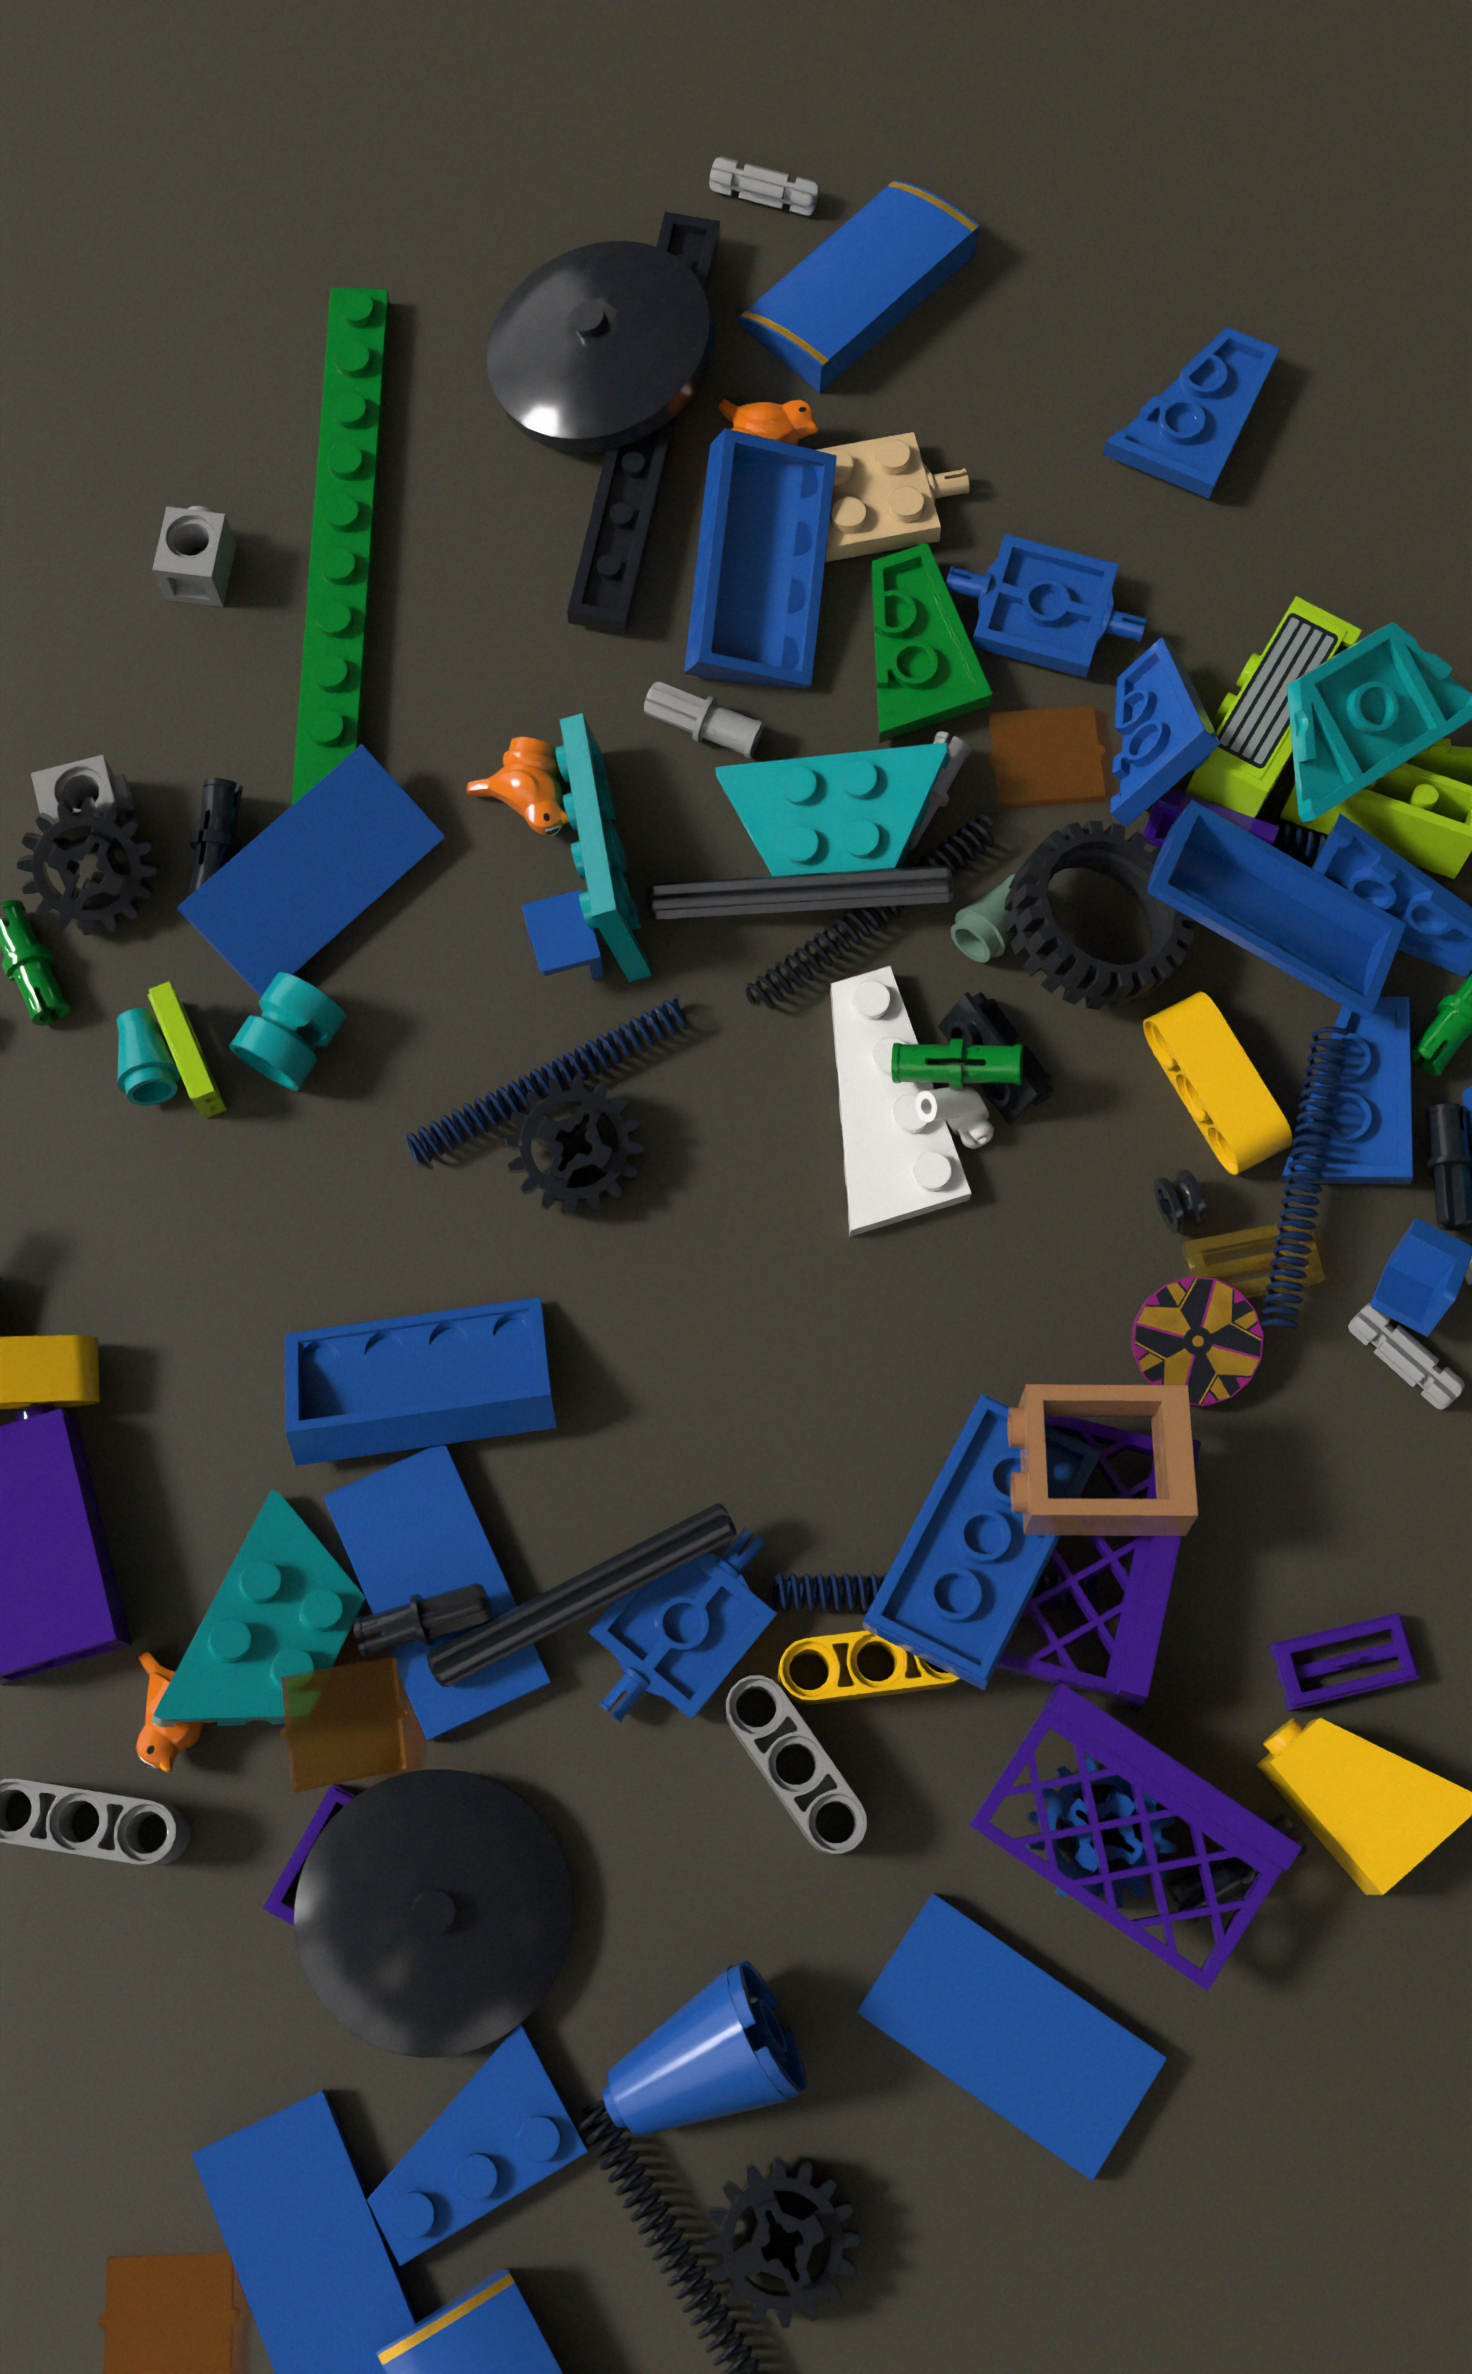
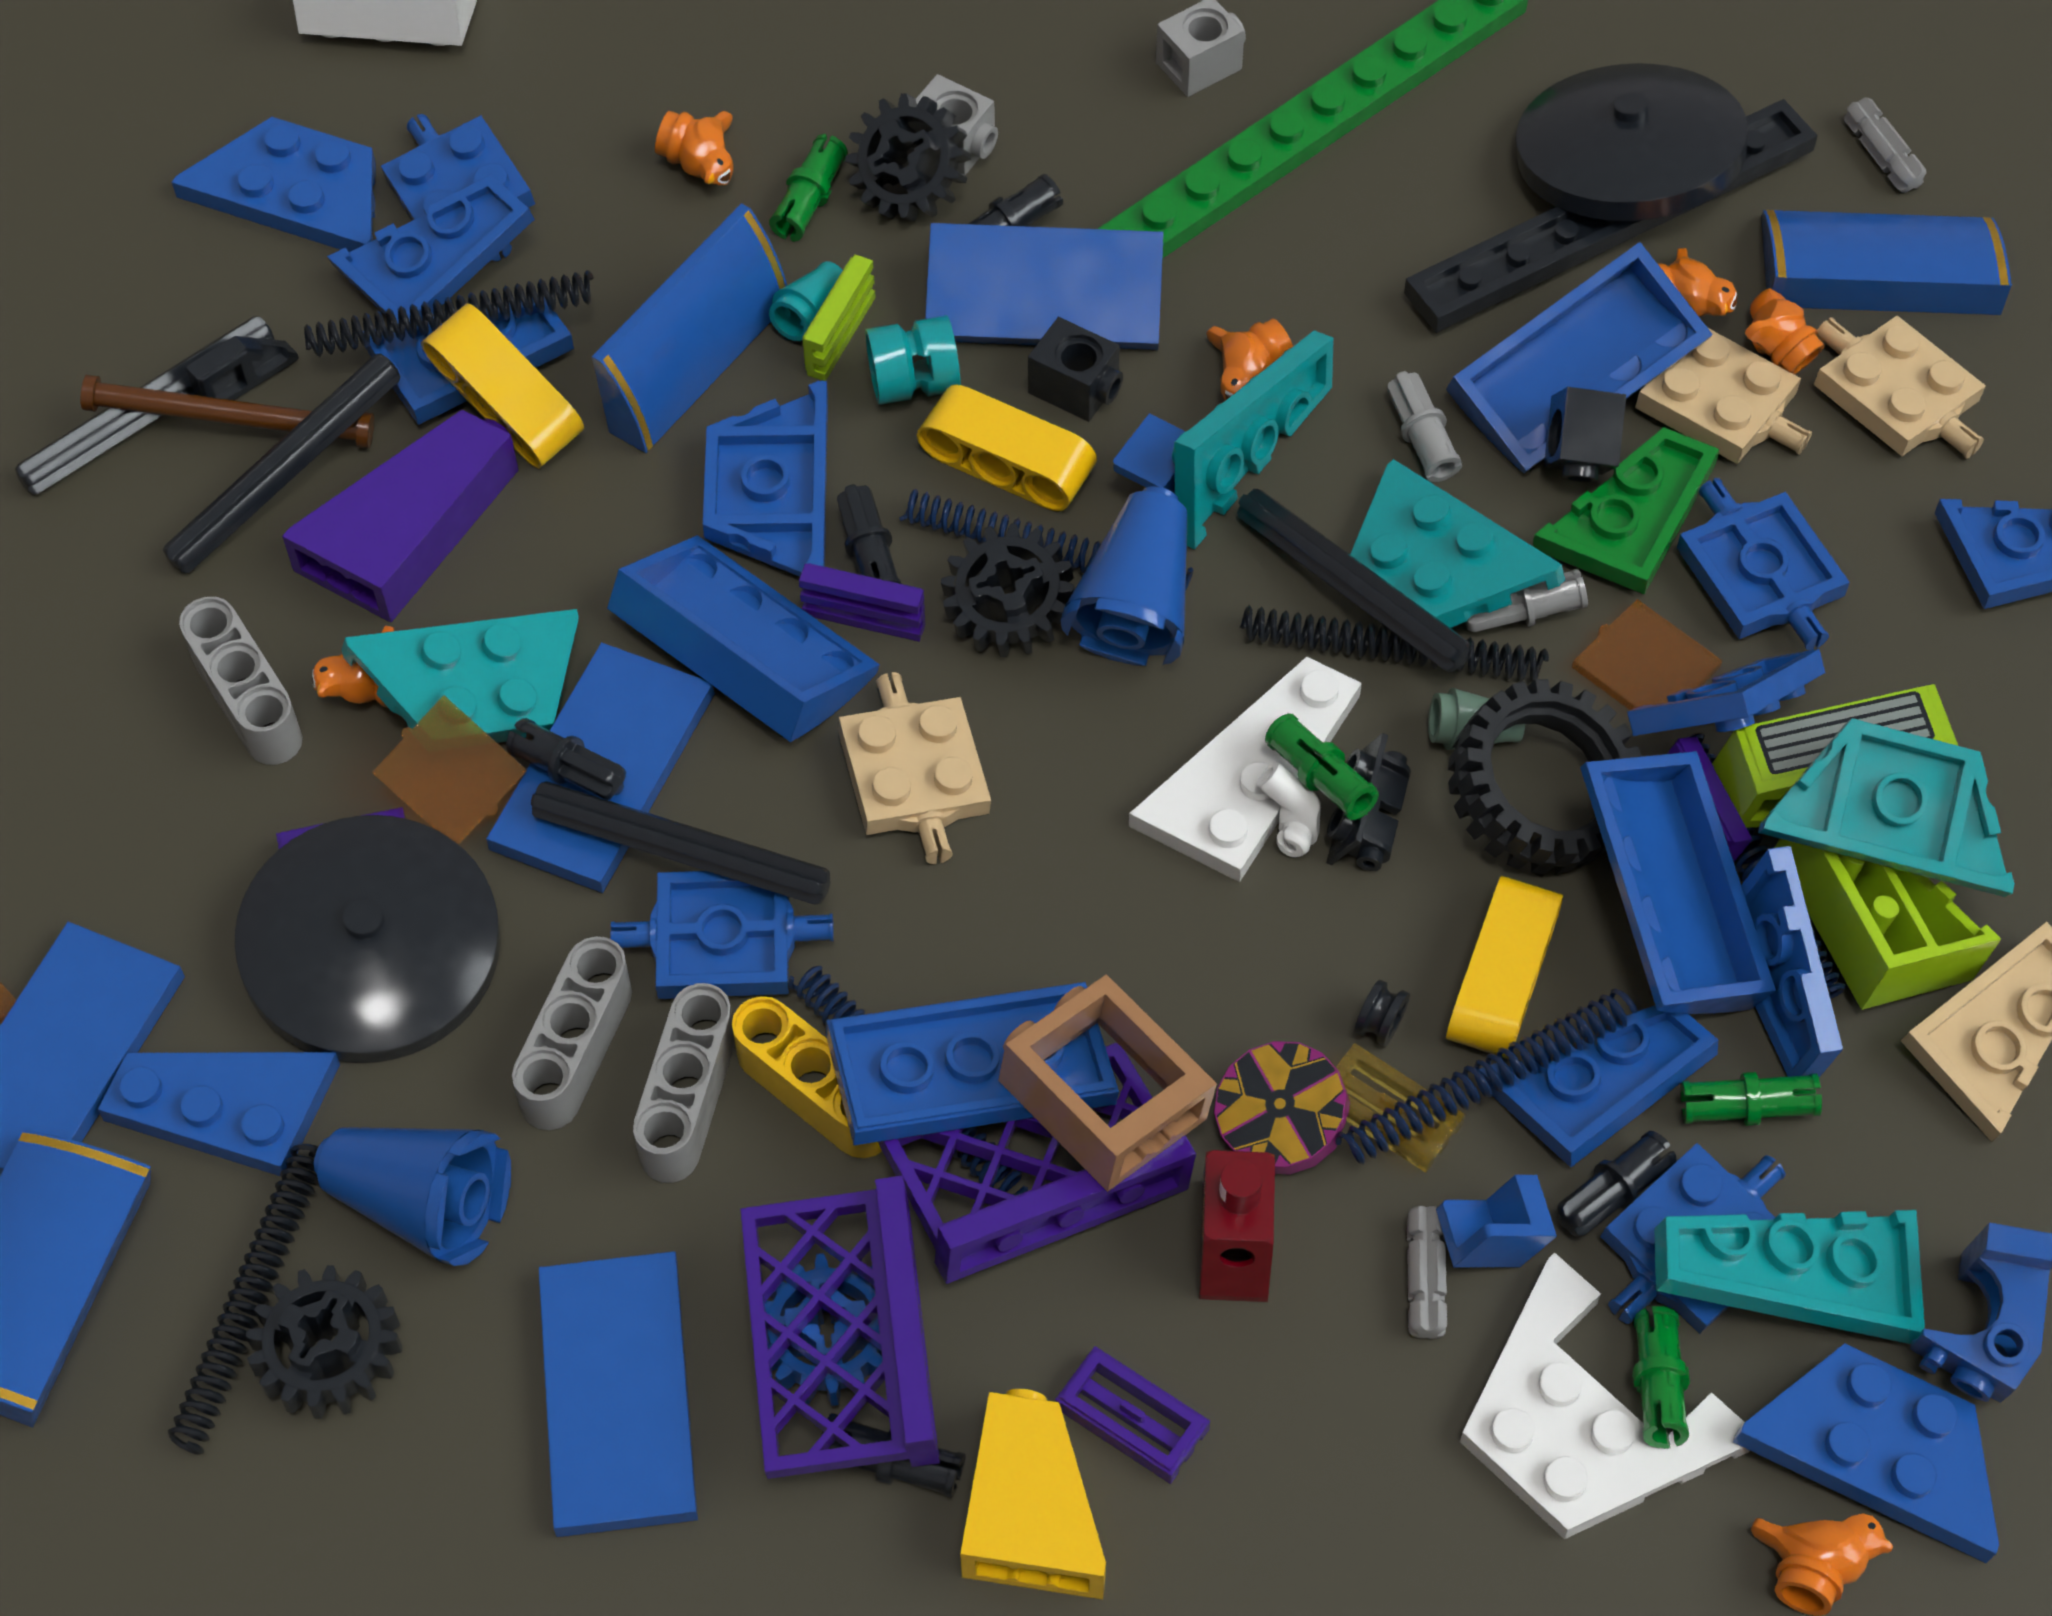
camera: 50 degrees right, 15 degrees down
(96, 1179) = (688, 331): none -> blue slope
(295, 1236) = (770, 481): none -> blue wing
(396, 900) = (1074, 369): none -> black brick
(421, 1209) = (866, 536): none -> black axle
(435, 1032) = (1007, 447): none -> yellow beam
(479, 1262) = (863, 601): none -> dark purple tile
(645, 1795) = (574, 1060): none -> light grey beam
(659, 1351) = (914, 766): none -> tan plate
(669, 1047) = (1135, 584): none -> blue cone
(835, 619) = (1584, 433): none -> black brick
(862, 405) = (1782, 332): none -> orange animal
(978, 375) = (1900, 386): none -> tan plate
(1270, 1456) = (1237, 1214): none -> dark red torso

